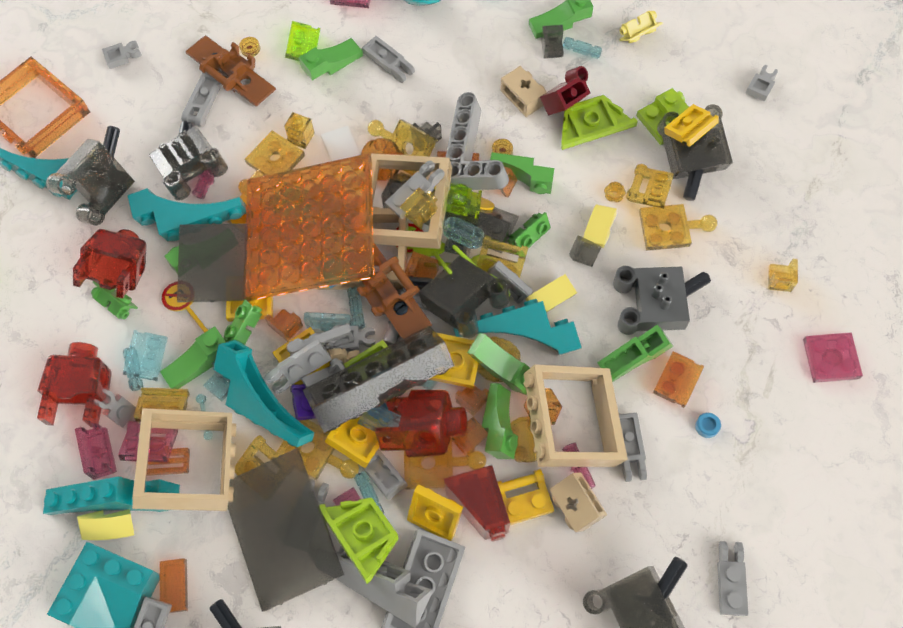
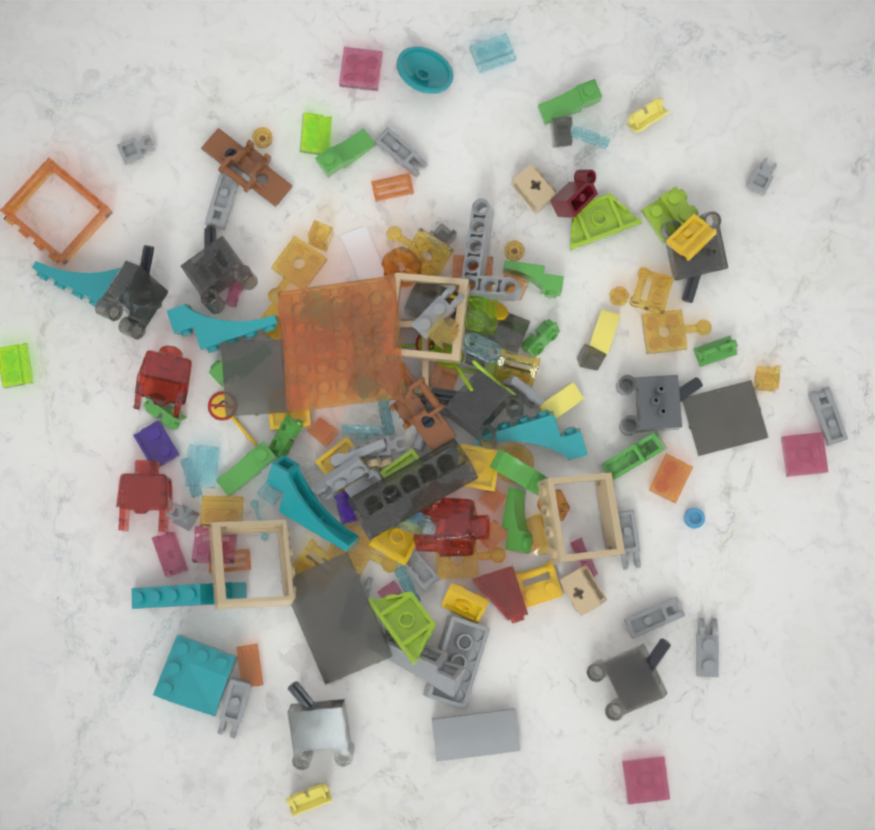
camera: 10 degrees left, 15 degrees up
(101, 332) = (156, 443): none -> dark purple plate
(105, 527) = (185, 620): light yellow slope -> none
(377, 88) = (392, 187): none -> clear orange tile
(664, 539) = (653, 617): none -> light grey plate
(723, 247) = (715, 351): none -> bright green hinge
(737, 318) = (724, 418): none -> clear smoke piece
(856, 316) = (828, 416): none -> light grey plate

